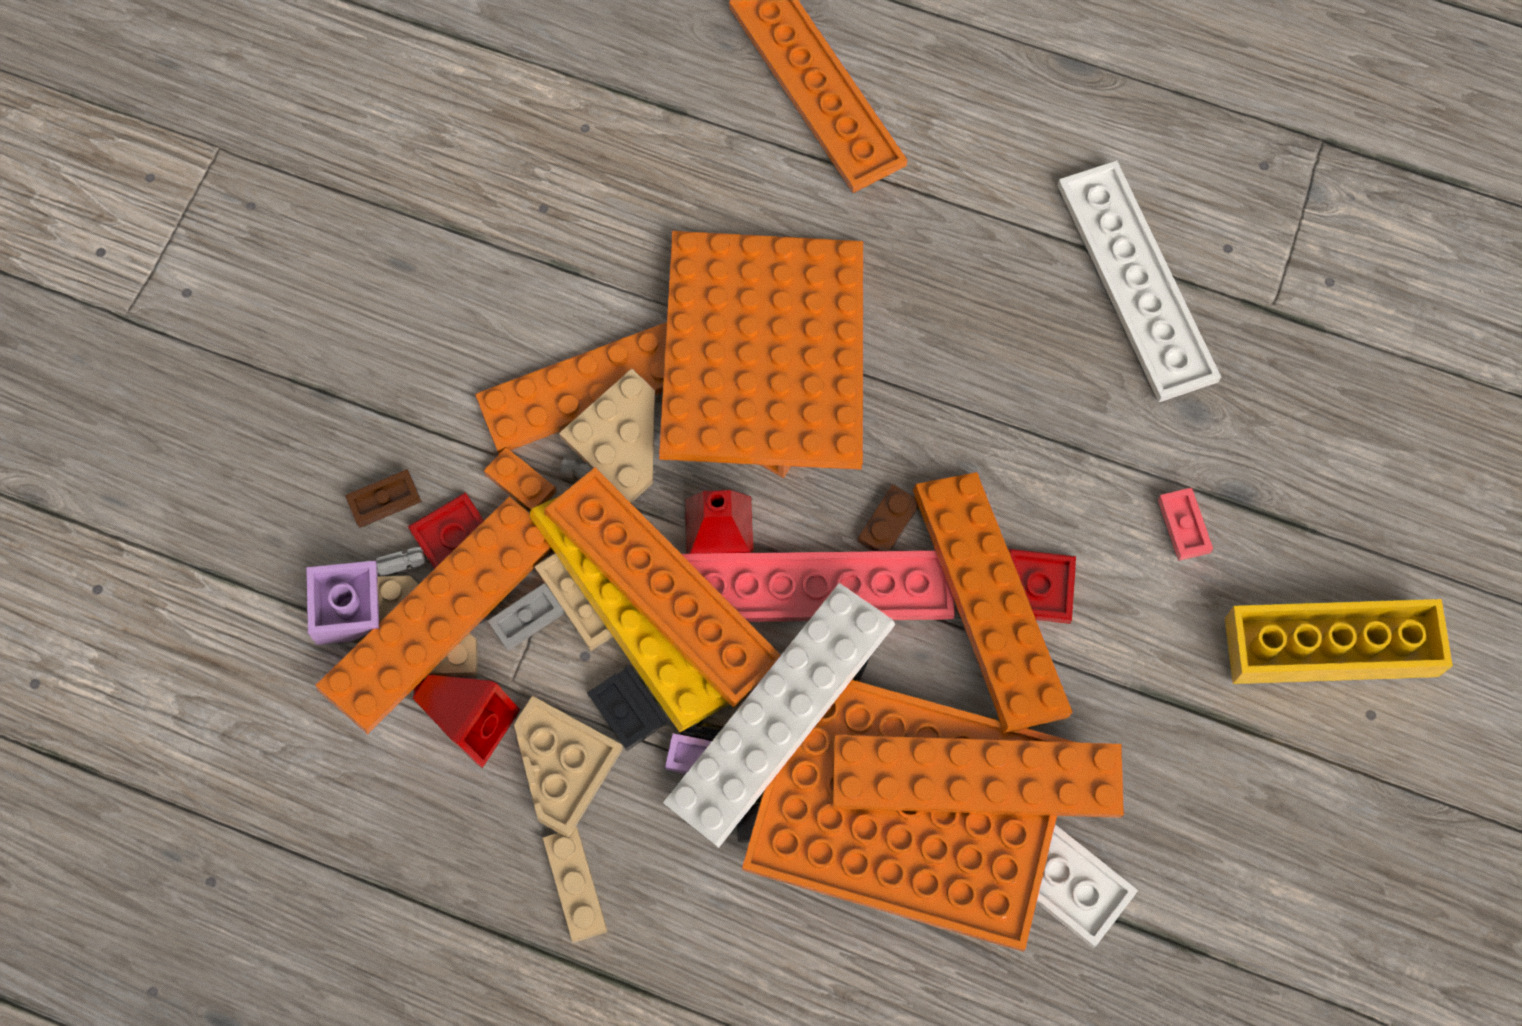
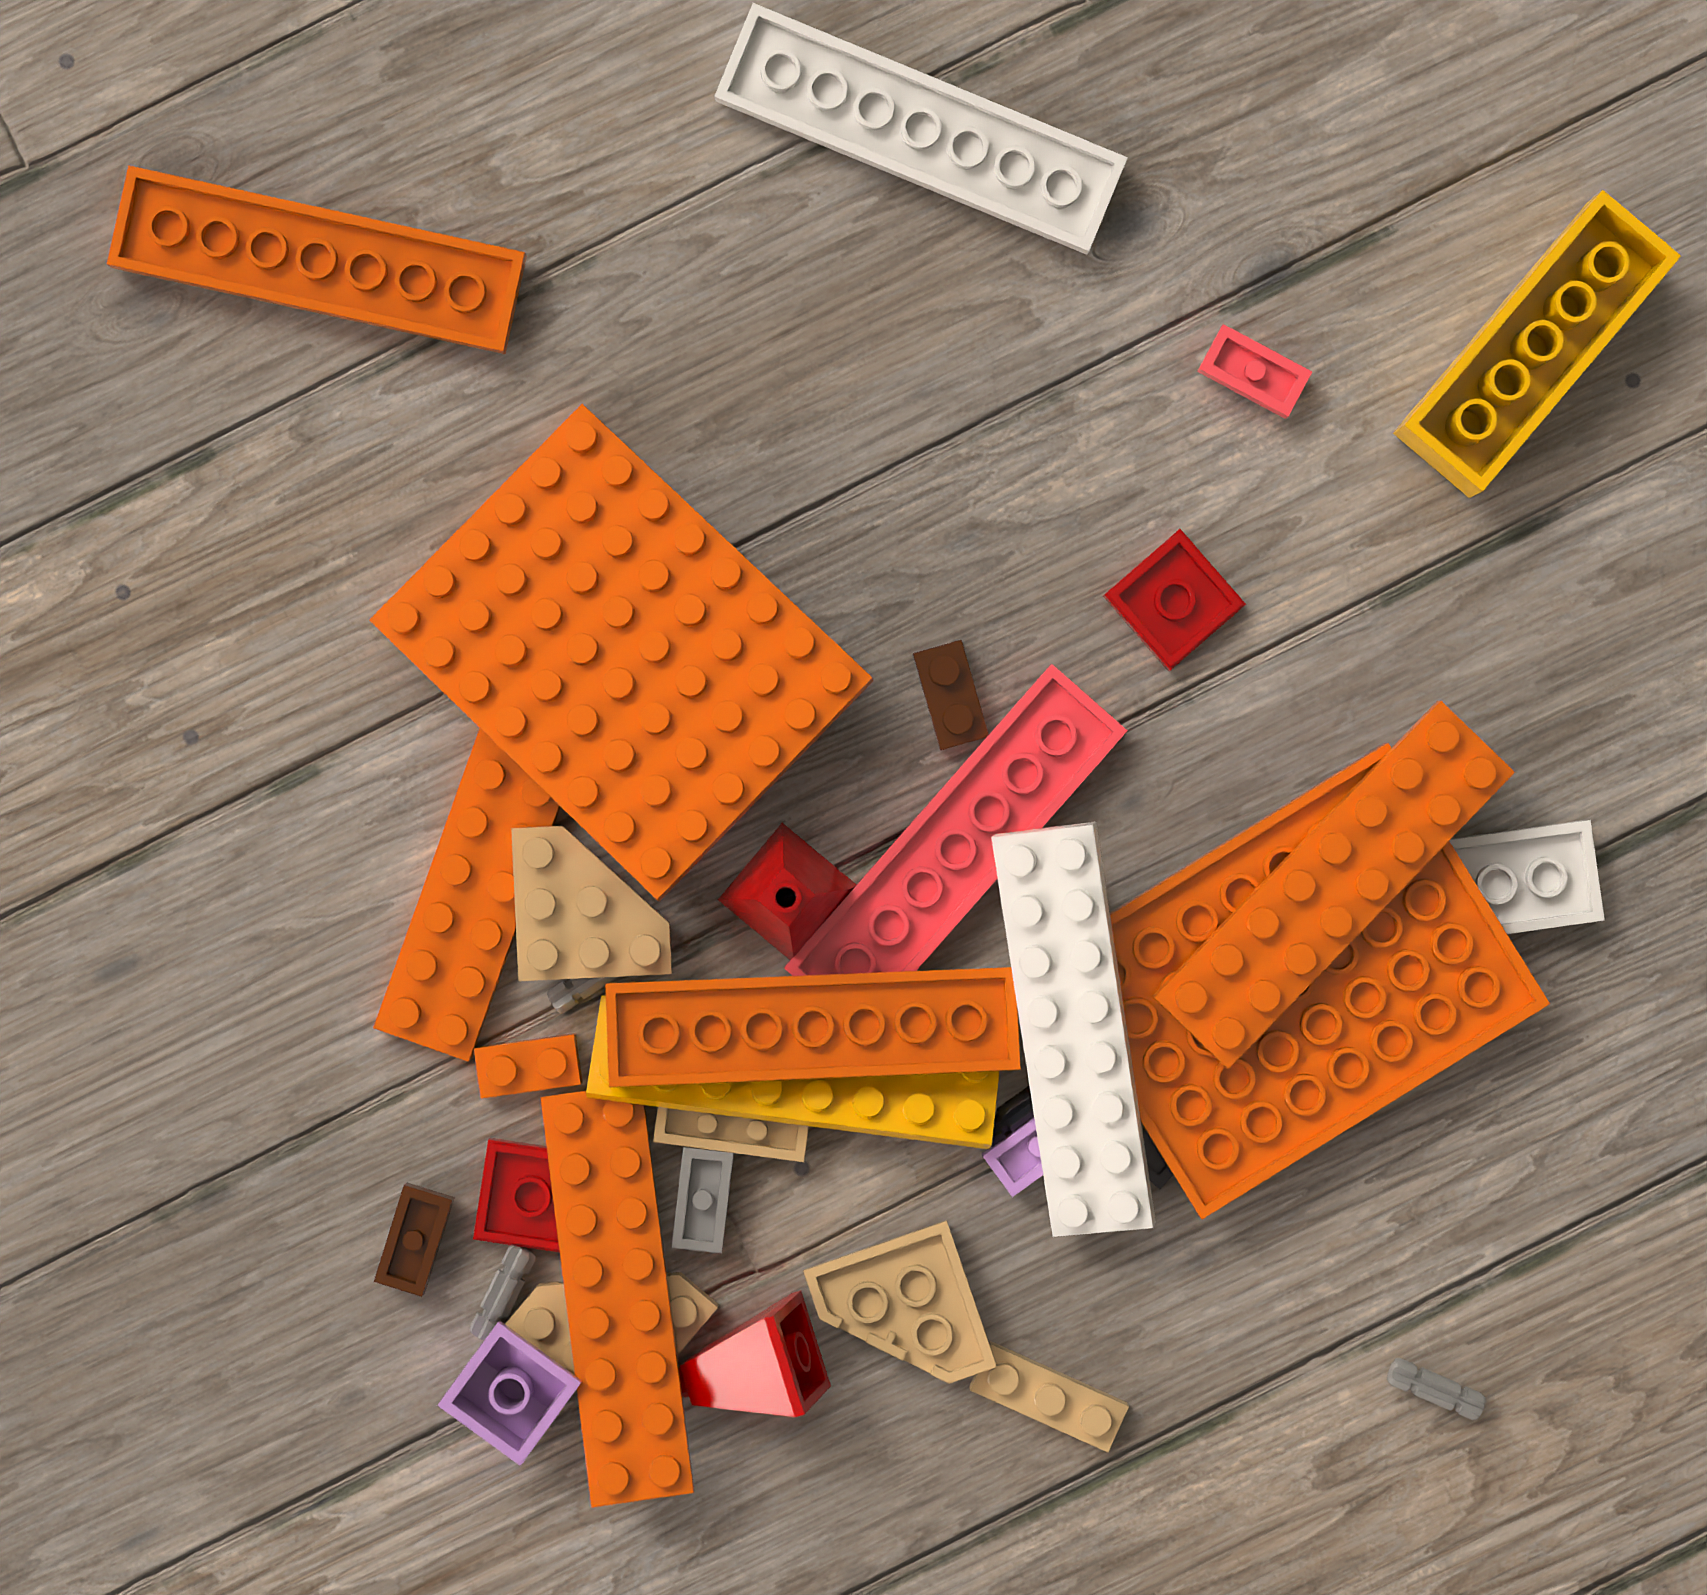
camera: 45 degrees left, 20 degrees up
(627, 708) = (907, 1177): black plate -> none
(992, 602) = (1149, 677): orange plate -> none

